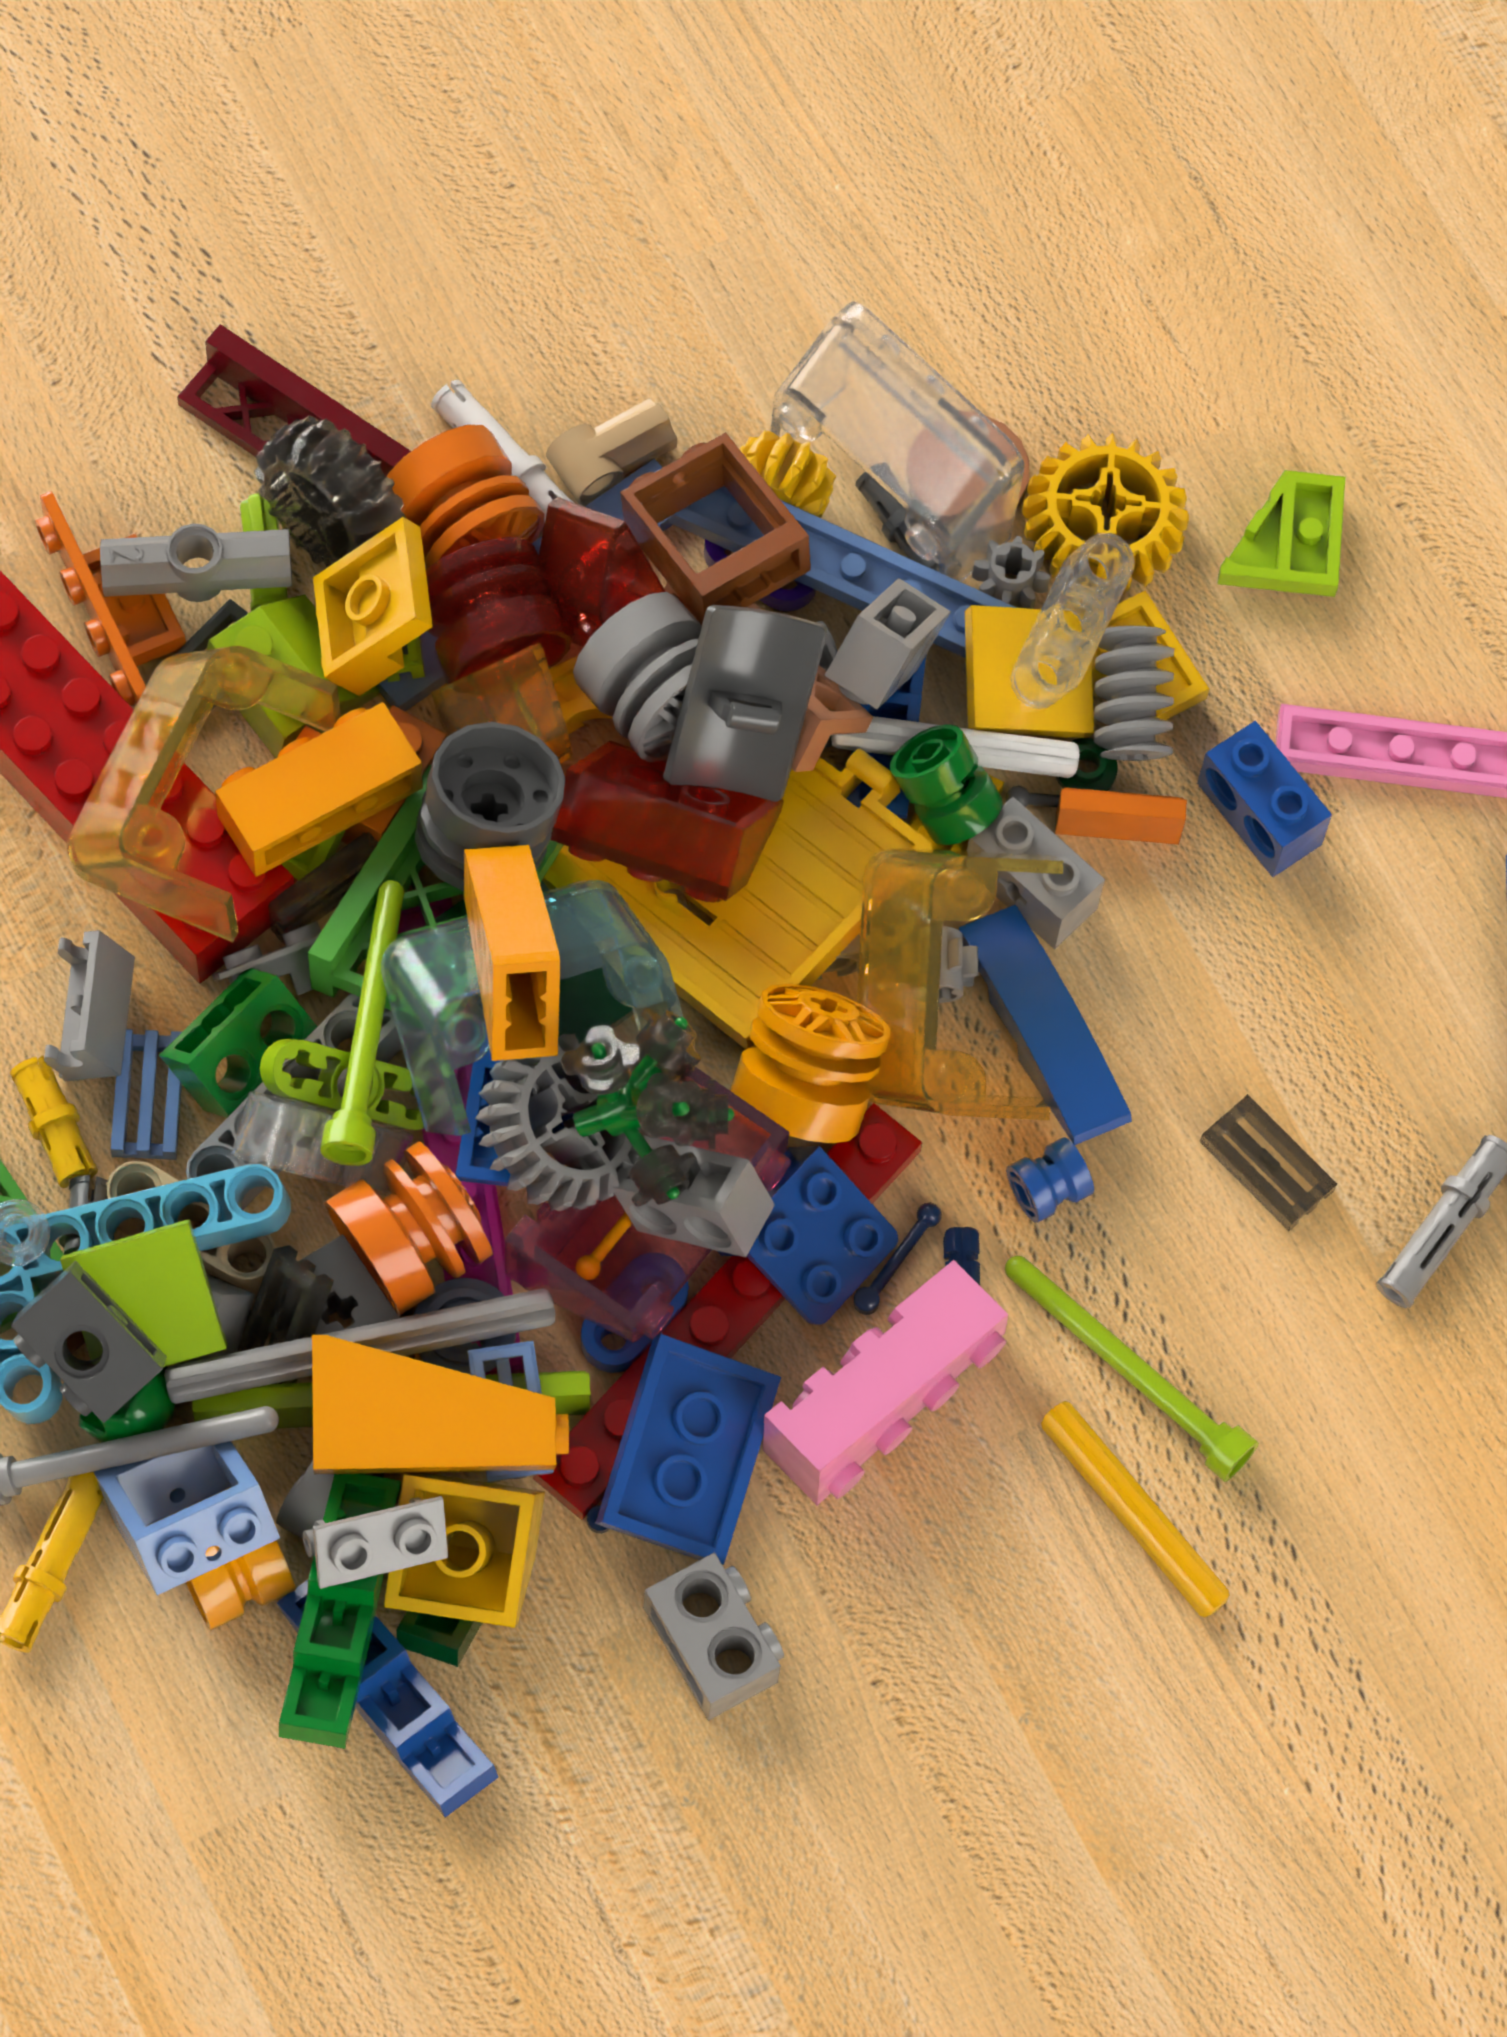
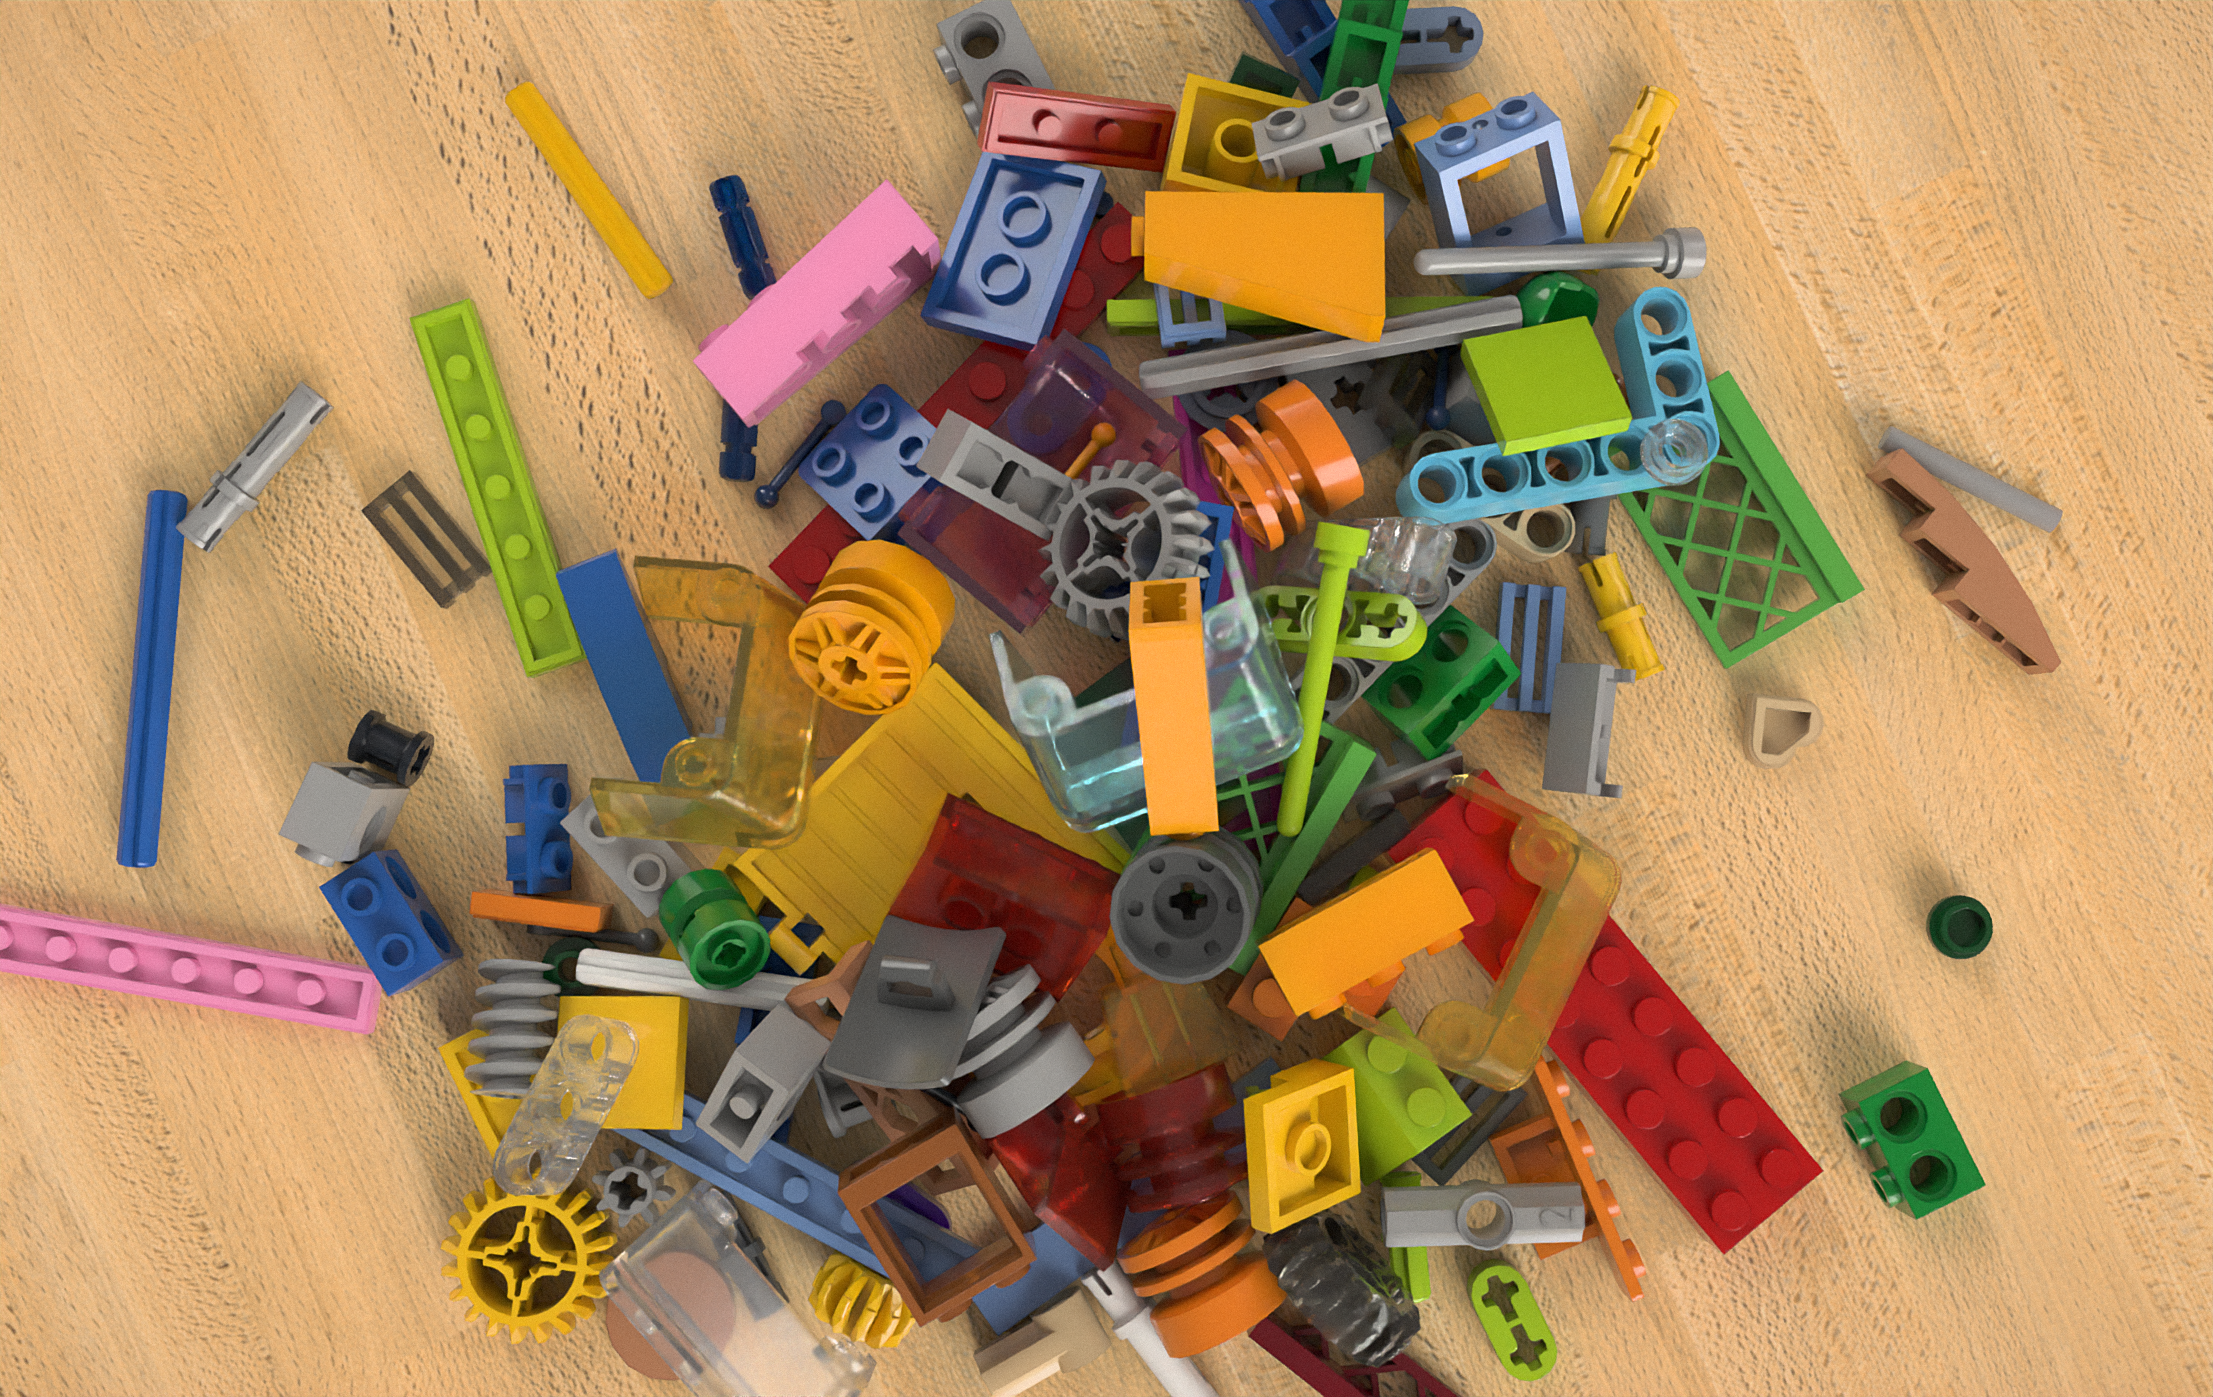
camera: 170 degrees left, 20 degrees up
(79, 1304) = (1602, 333): dark grey brick -> none
(149, 493) = (1524, 1313): none -> lime beam
(248, 1284) = (1438, 416): none -> dark blue hinge
(251, 1680) = (1436, 56): none -> sand blue beam
(629, 1568) = (1075, 127): none -> red tile
(649, 1090) = (1028, 506): clear smoke plant -> none
(970, 1467) = (742, 234): none -> clear blue axle
(1049, 1180) = (643, 520): blue wheel -> none
(1129, 866) = (543, 856): none -> blue hinge
(1203, 1220) = (498, 485): none -> lime tile
(1223, 1446) = (495, 243): lime piece -> none
(1283, 960) = (391, 747): none -> black bush
(1292, 539) = (335, 1223): lime wing -> none
(1315, 886) = (342, 813): none -> light grey brick

